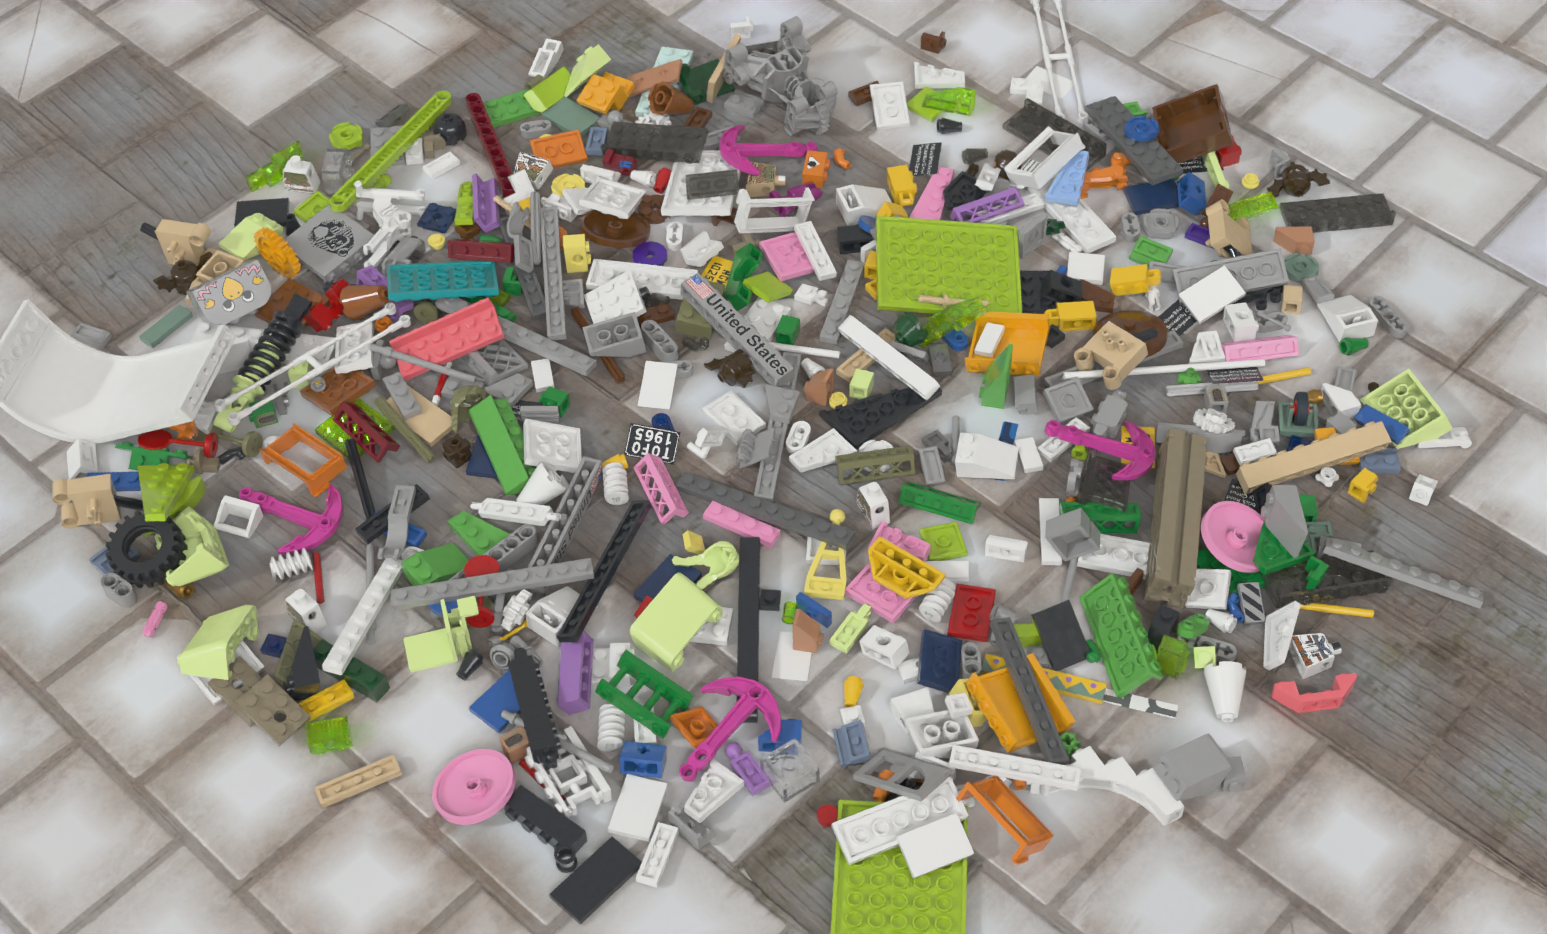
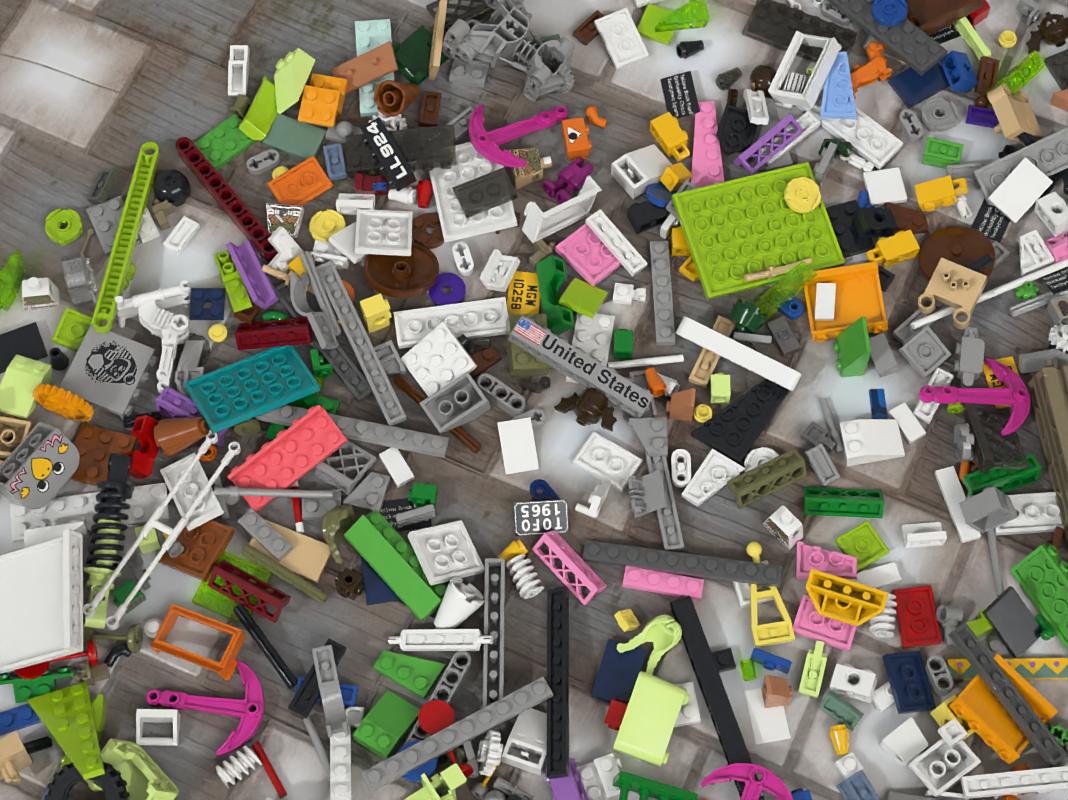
camera: 20 degrees left, 15 degrees up
(640, 137) = (388, 154): none -> black brick
(801, 363) = (655, 383): none -> orange cone
(863, 667) = (841, 710): none -> sand green plate
(1000, 249) = (802, 195): none -> light yellow tile

